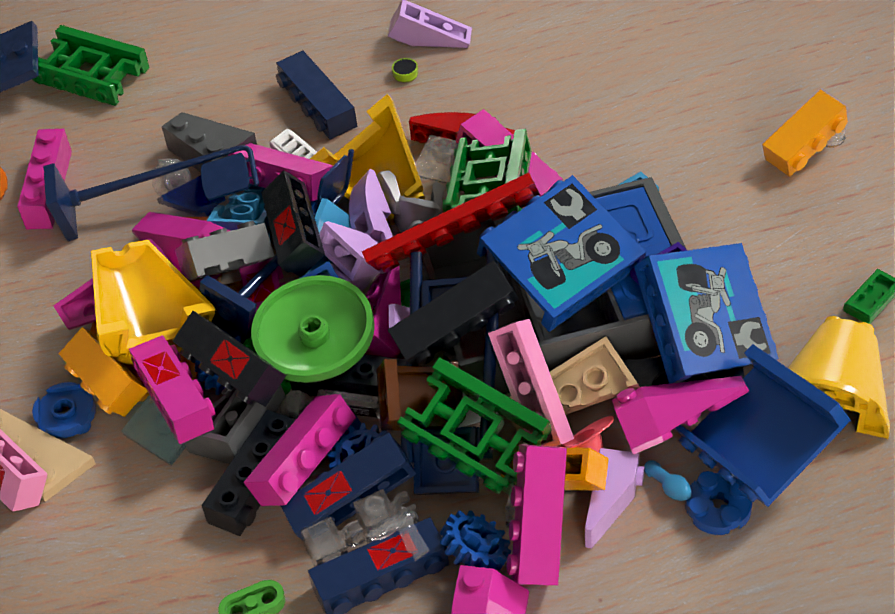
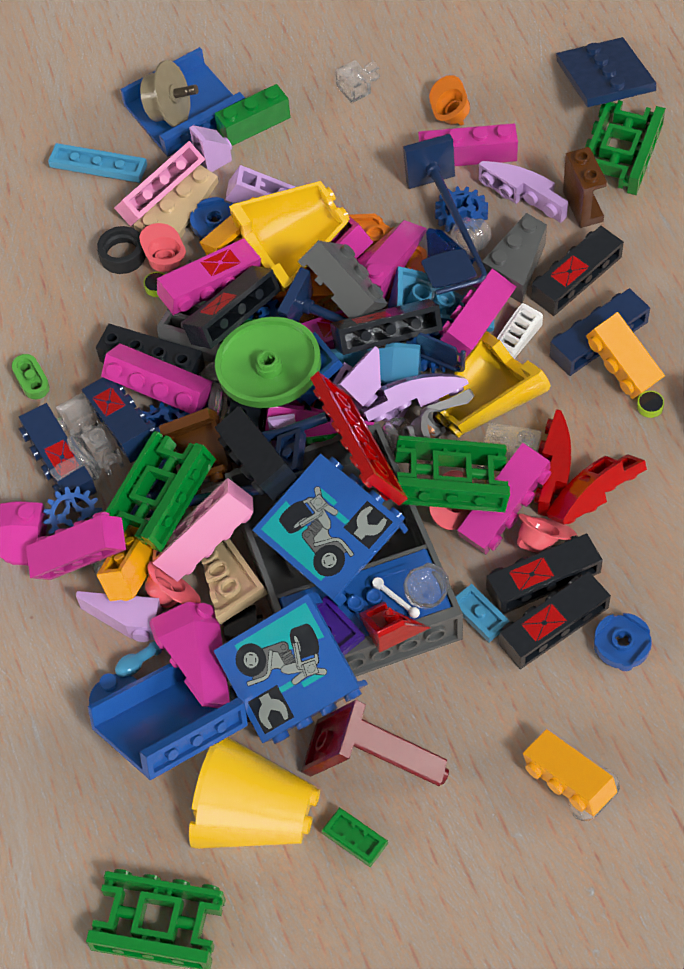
camera: 85 degrees right, 10 degrees up
(39, 363) = (250, 183): none -> lavender slope
(73, 488) = (118, 235): none -> black tyre
(102, 452) = (162, 247): none -> coral piece
(112, 139) = (519, 183): none -> lavender slope
(130, 197) = (466, 204): none -> blue gear
(141, 472) = (150, 283): none -> black tile
(143, 82) = (581, 178): none -> reddish brown panel
(236, 103) = (576, 270): none -> black brick
(356, 69) = (624, 356): none -> light orange brick
(498, 102) = (589, 487): none -> red slope
(548, 142) = (539, 533): none -> coral piece
(588, 145) = (543, 573): none -> black brick
(629, 187) = (426, 586): none -> clear hair
(640, 142) = (554, 619): none -> black brick
(651, 207) = (378, 583): none -> white hinge
(663, 112) = (622, 656): none -> blue plate
(671, 223) = (389, 626): none -> red slope
(787, 276) = (345, 728): none -> piece

